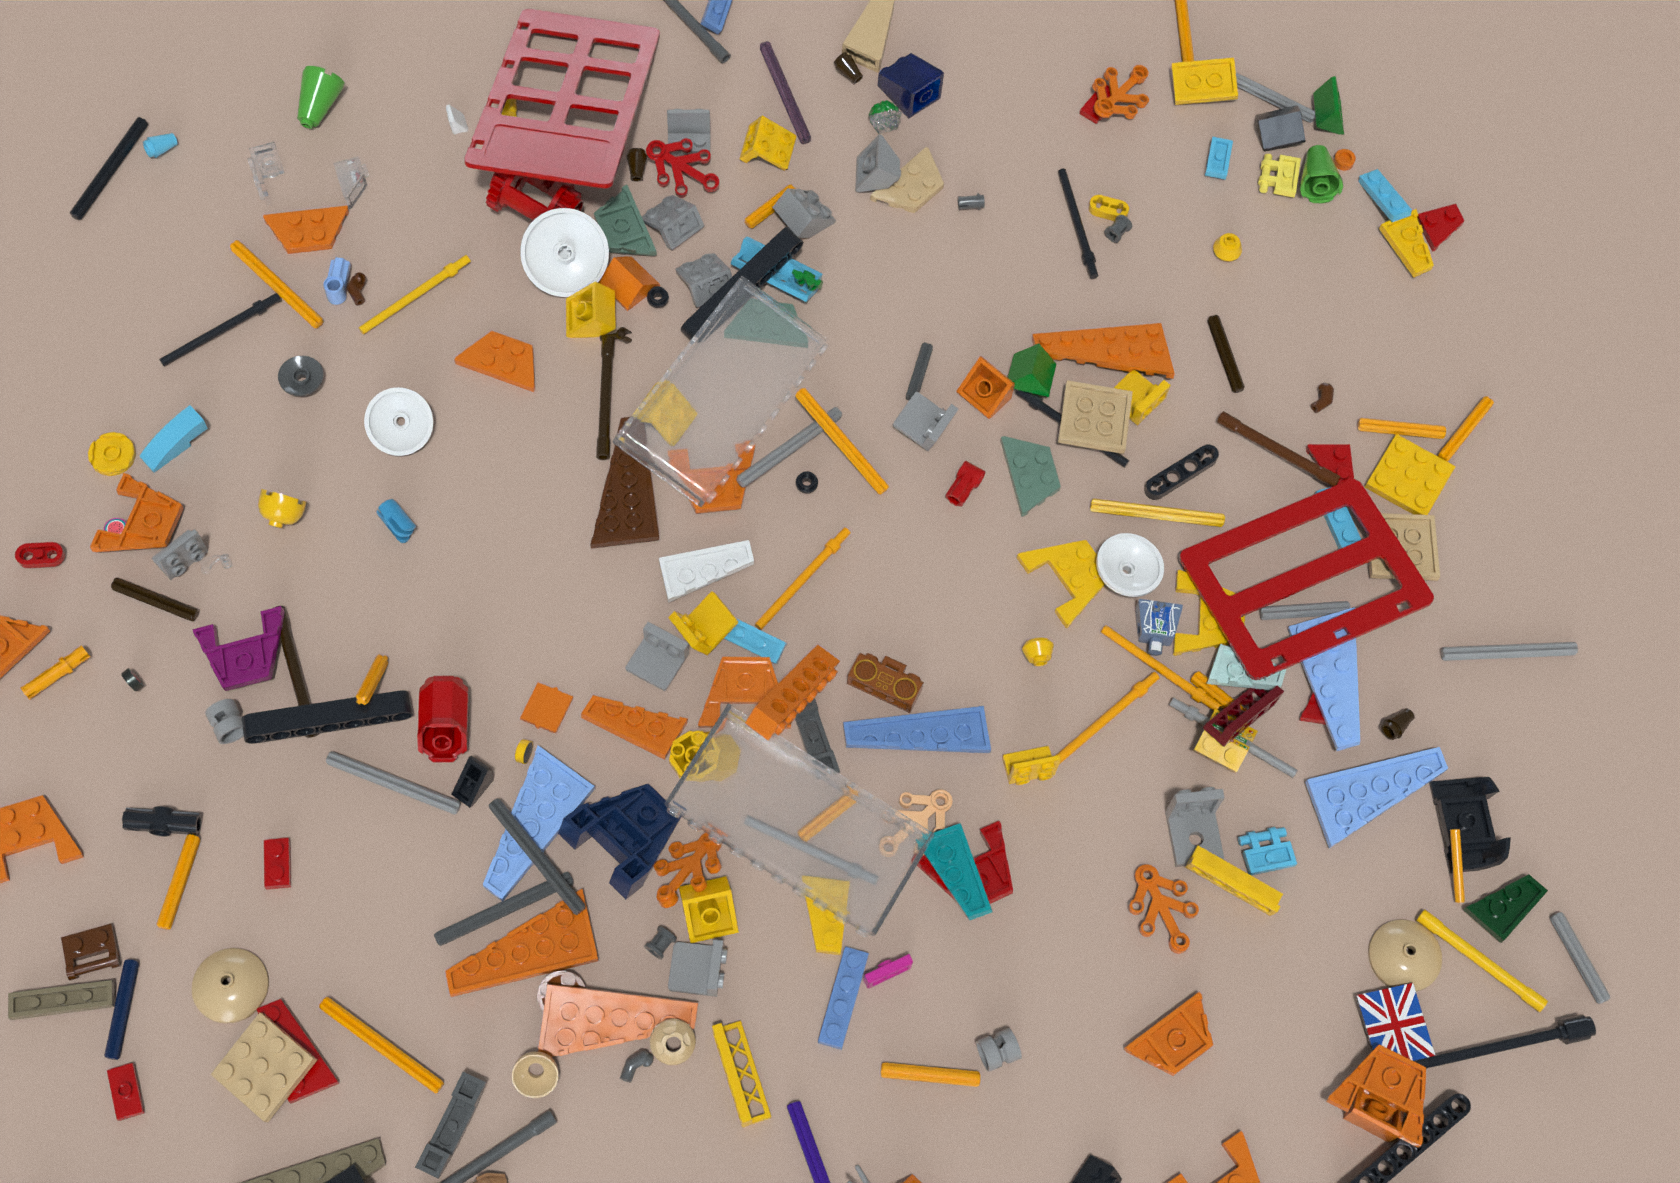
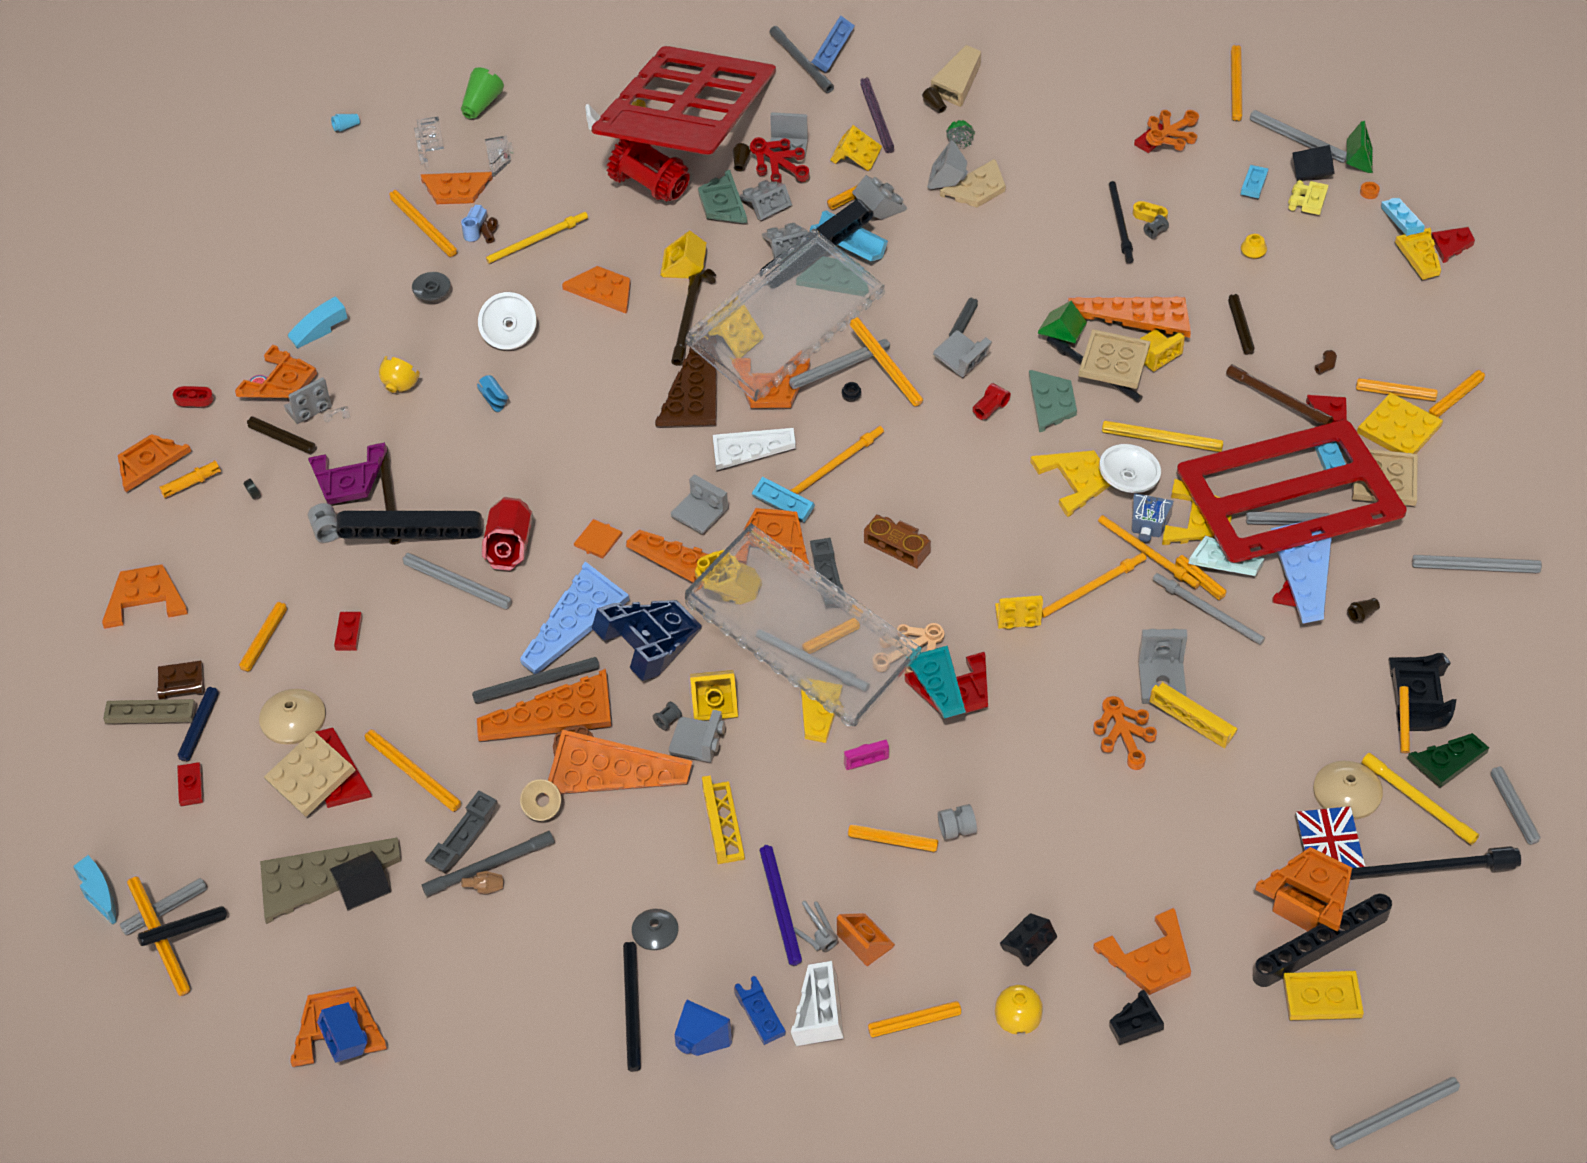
camera: 15 degrees right, 15 degrees down
(108, 168) = (300, 136): black axle -> none
(111, 454) = (265, 332): yellow tile -> none
(161, 821) = (257, 590): black piece -> none
(257, 308) = (404, 238): black bar -> none
(372, 679) = (451, 500): light orange axle -> none
(472, 782) = (525, 583): black slope -> none
(523, 751) = (572, 565): yellow tile -> none
(537, 856) = (570, 640): dark grey axle -> none
(564, 251) = (666, 208): white dish -> none
(628, 280) = (720, 239): orange slope -> none
(635, 1061) = (628, 804): dark grey arm -> none
(657, 292) = (743, 251): black plate -> none
(667, 894) = (721, 648): orange plant -> none
(672, 1028) = (668, 800): tan piece -> none
(705, 624) = (746, 483): yellow bracket -> none
(793, 693) = (811, 528): orange brick -> none
(807, 277) = (874, 241): green piece -> none
(843, 998) = (823, 774): medium blue plate -> none
(911, 84) = (988, 113): clear blue slope -> none
(931, 731) = (939, 581): medium blue wing -> none
(968, 202) = (1027, 200): dark grey pin -> none
(986, 388) = (1021, 332): orange slope -> none
(1038, 650) = (1038, 527): yellow cone -> none
(1175, 1039) = (1121, 831): orange wing -> none
(1183, 474) = (1167, 417): black beam -> none
(1204, 81) = (1248, 124): yellow plate -> none
(1232, 754) = (1198, 608): yellow slope -> none
(1243, 718) = (1218, 585): dark red fence -> none
(1270, 857) = (1228, 701): medium azure plate -> none
(1320, 176) = (1344, 199): bright green cone -> none
(1360, 794) = (1321, 660): light blue wing -> none

